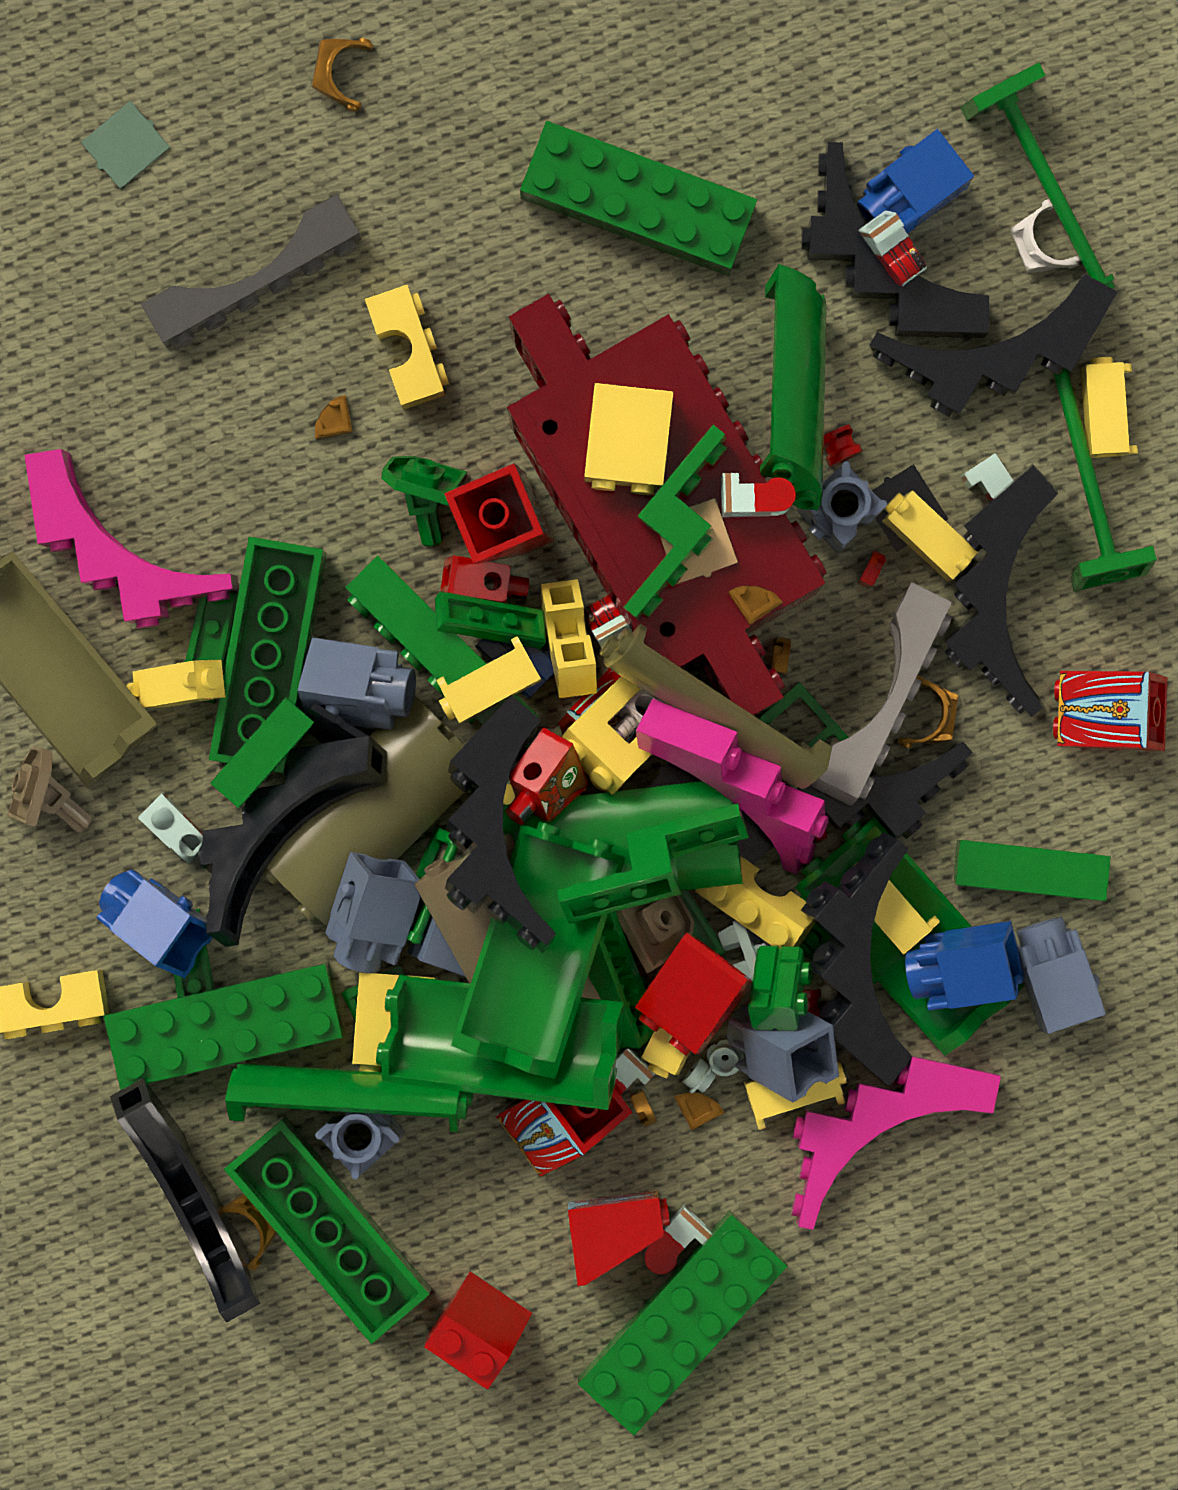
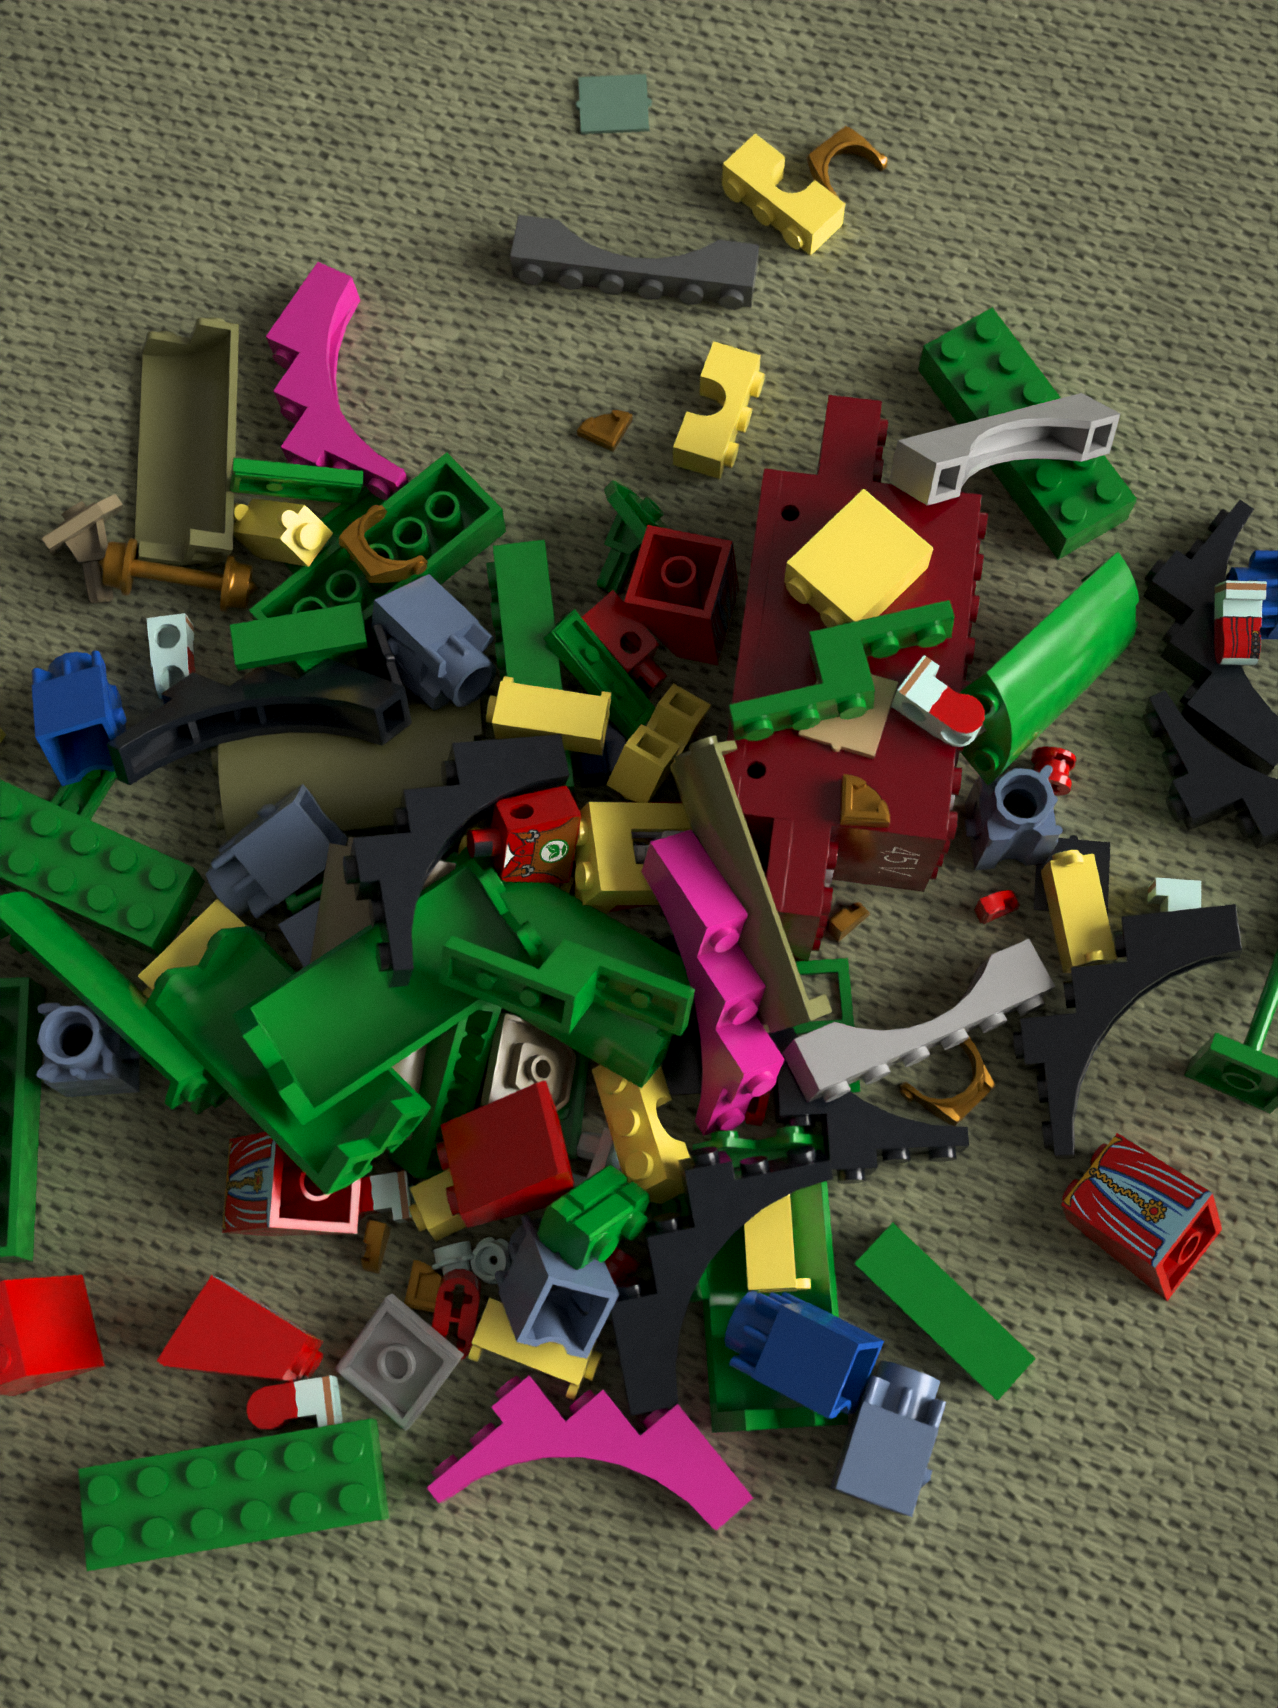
camera: 40 degrees right, 15 degrees down
(159, 640) = (295, 481): none -> green tile
(172, 743) = (121, 567): none -> pearl gold piece
(254, 661) = (371, 564): none -> pearl gold helmet
(347, 141) = (801, 217): none -> light yellow arch
(678, 198) = (940, 462): none -> light grey arch
(717, 1166) = (398, 1361): none -> light grey plate
(723, 1114) = (466, 1315): none -> red beam

